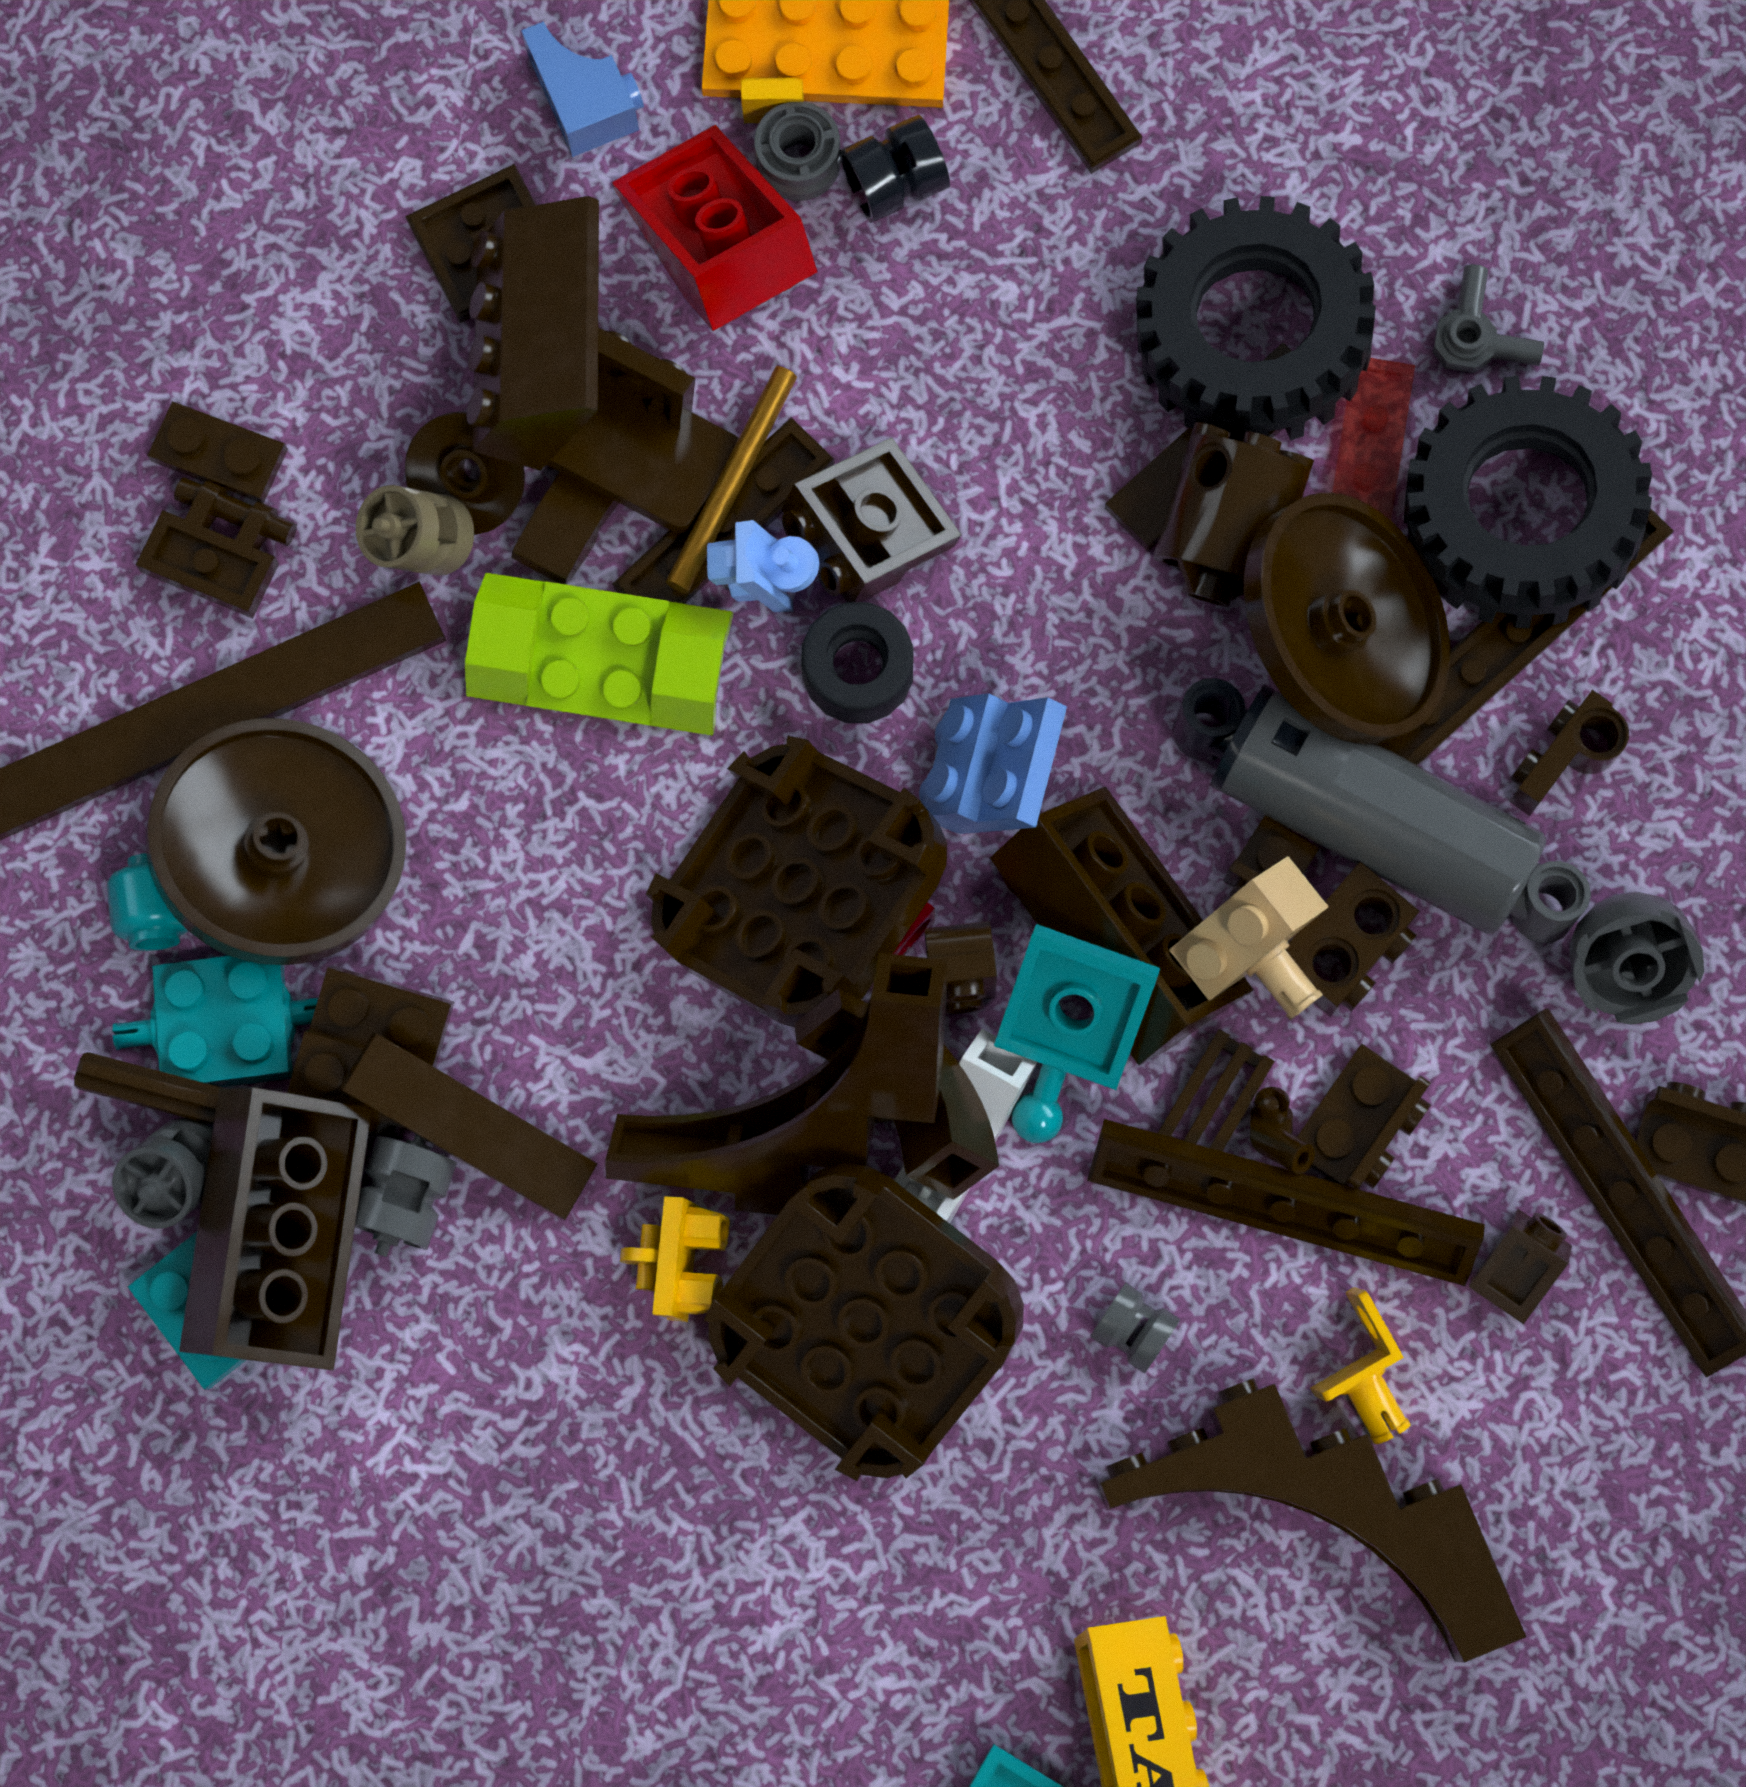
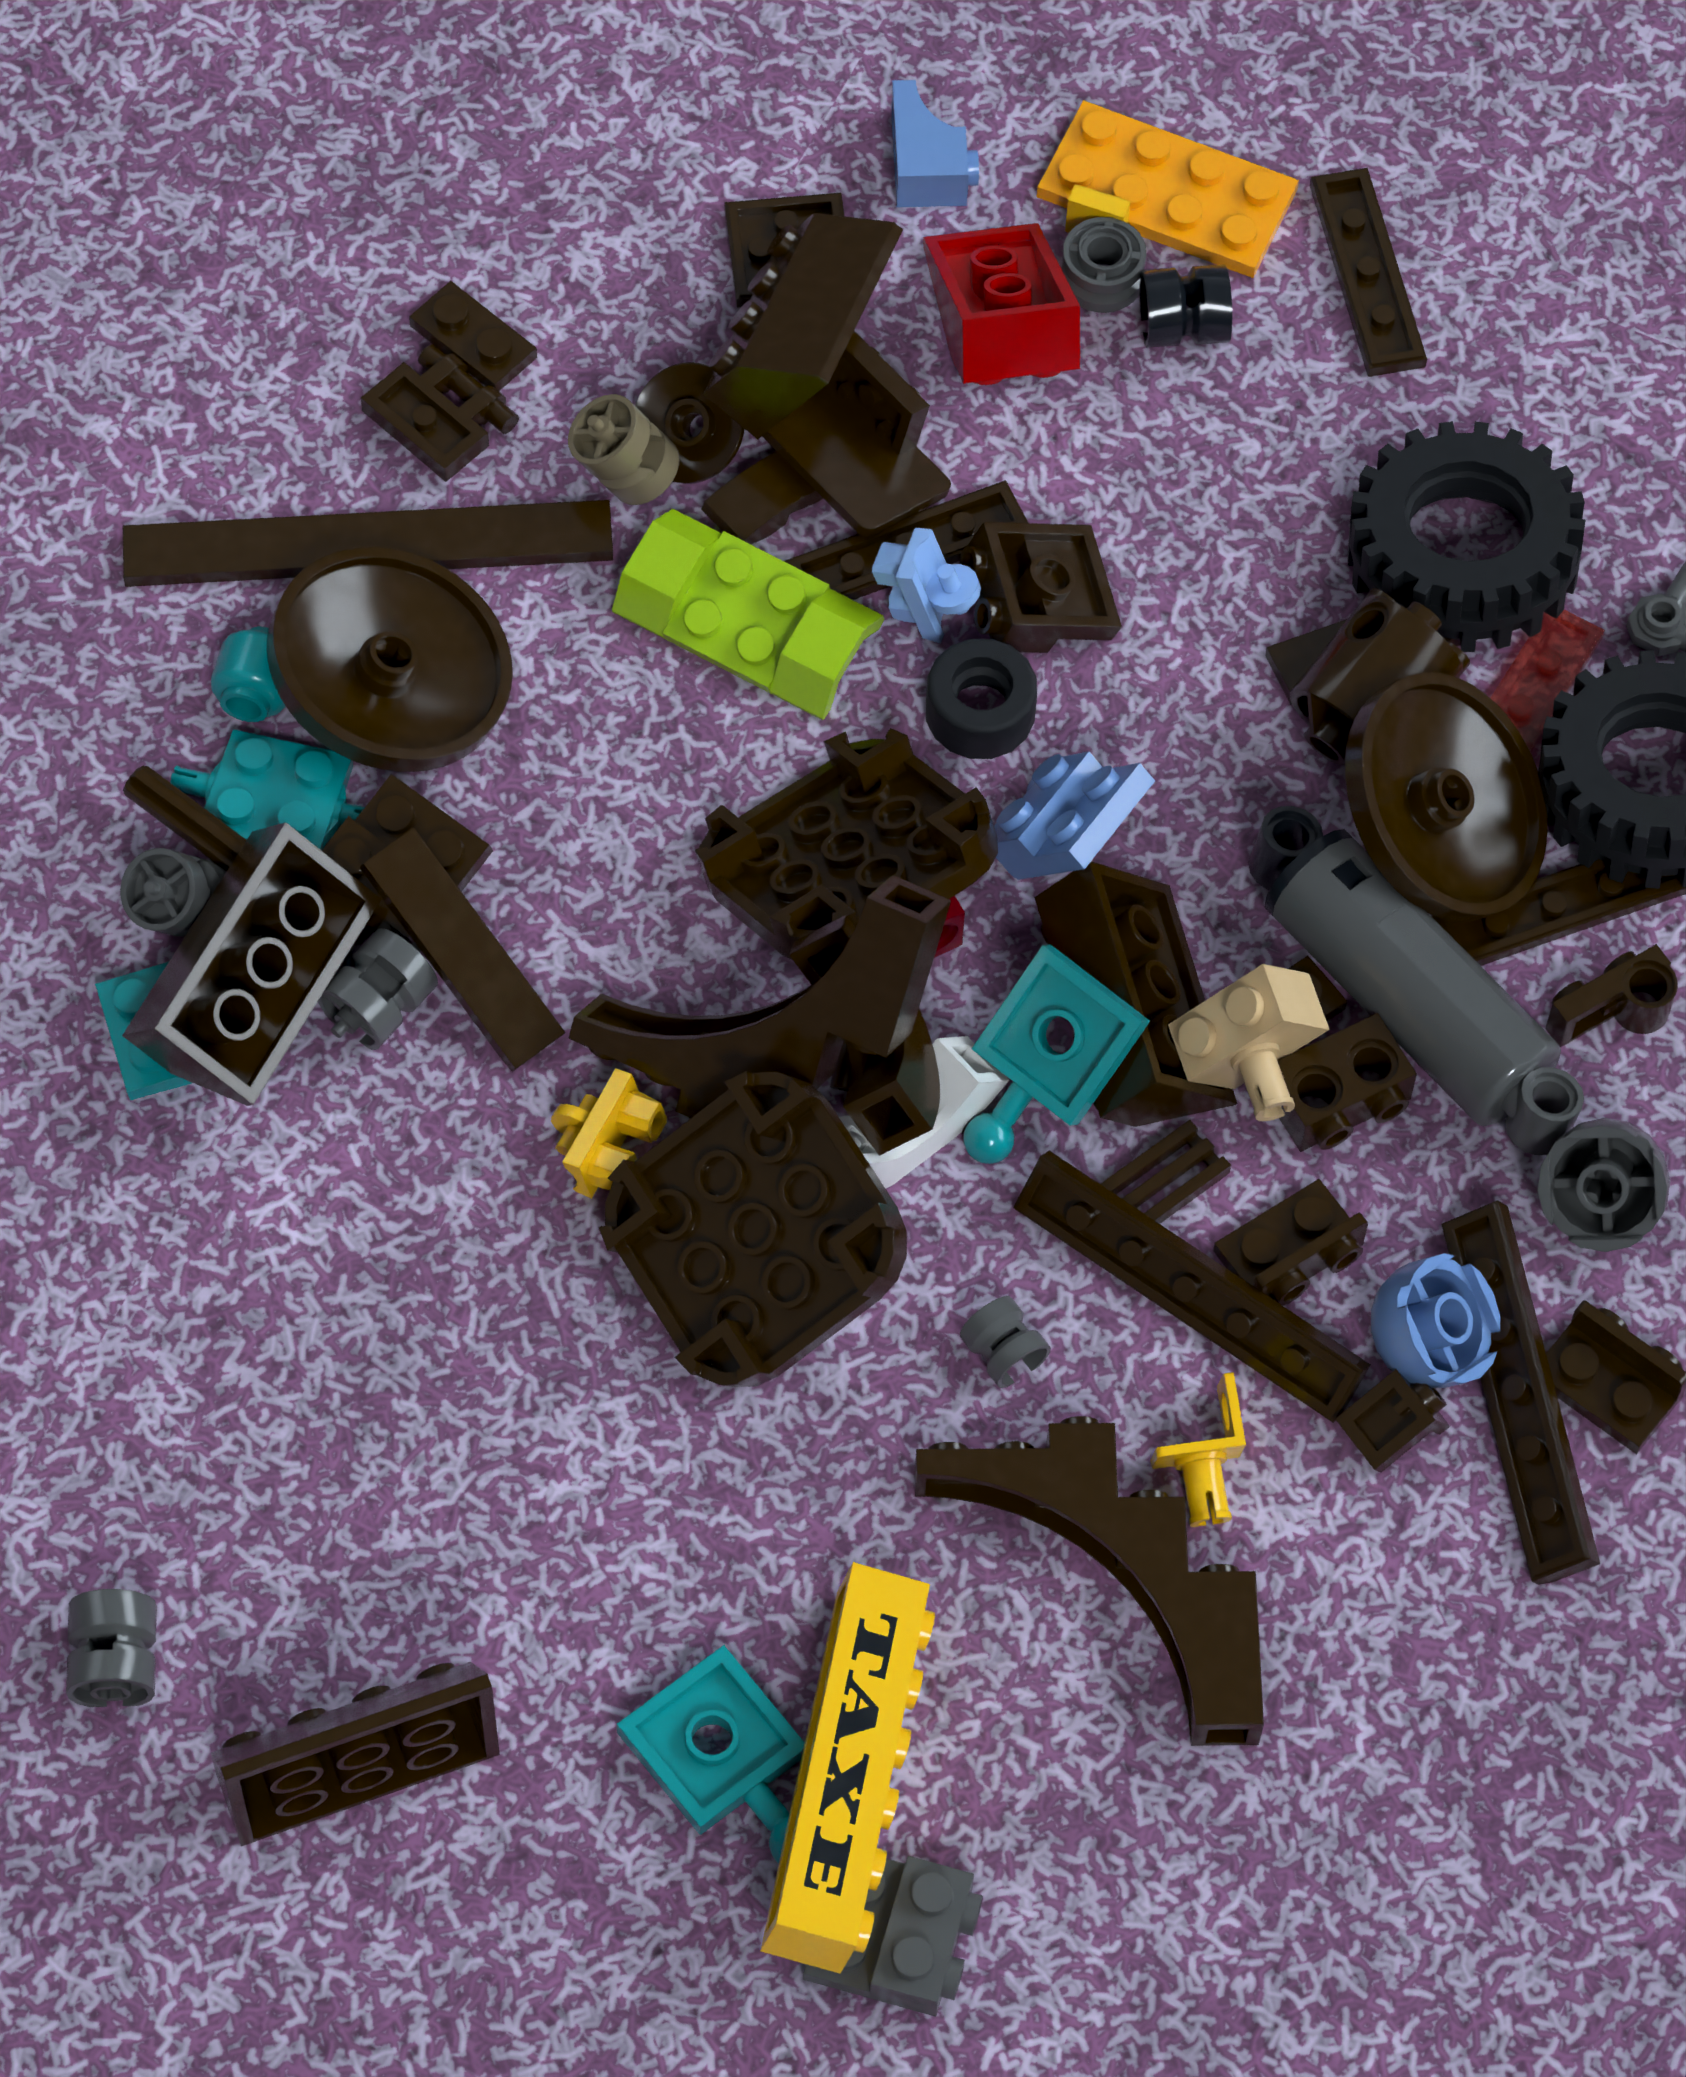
camera: 15 degrees right, 15 degrees down
(731, 479) = (931, 506): pearl gold bar -> none
(969, 966) = (967, 973): dark brown plate -> none
(1273, 1131) = (1205, 1222): dark brown arm -> none
(1531, 1163) = (1435, 1322): none -> medium blue cylinder

